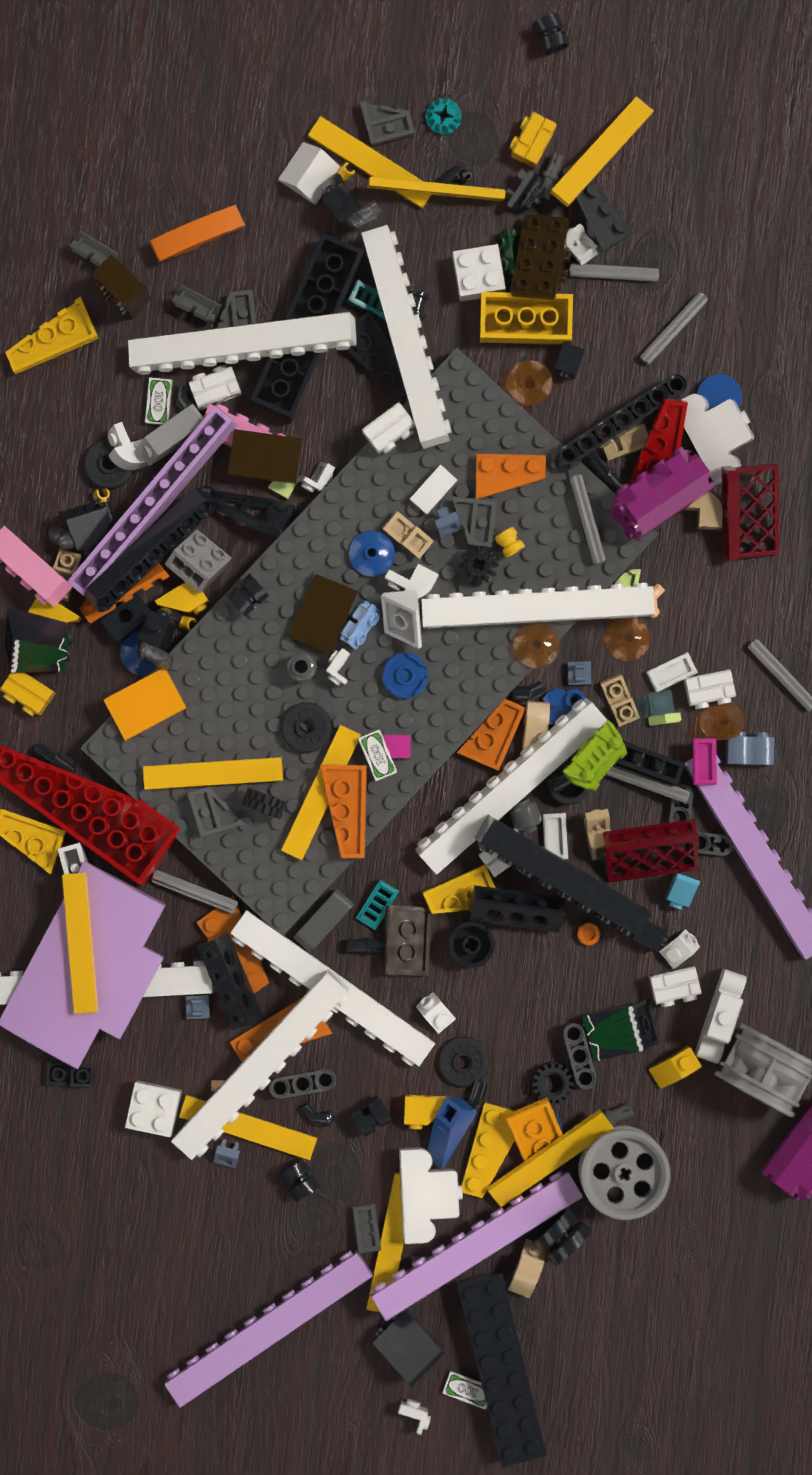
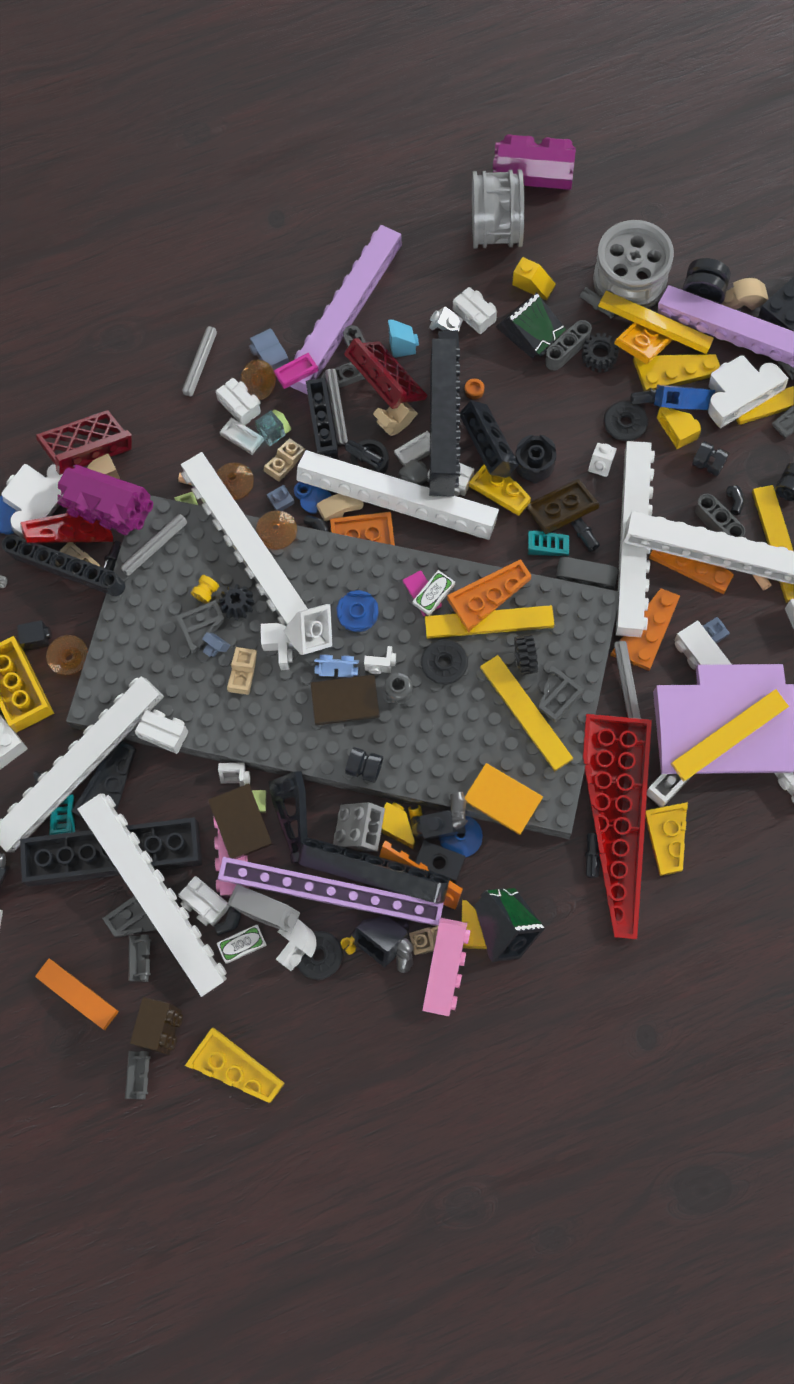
camera: 115 degrees left, 15 degrees down
(28, 692) = (551, 908): yellow brick -> none
(229, 980) = (679, 612): black brick -> none
(369, 565) = (276, 700): blue dish -> none
(433, 489) = (194, 671): white tile -> none
(505, 472) = (149, 624): orange wing -> none
(596, 757) = (337, 434): lime piece -> none
(721, 1016) = (476, 264): white brick -> none

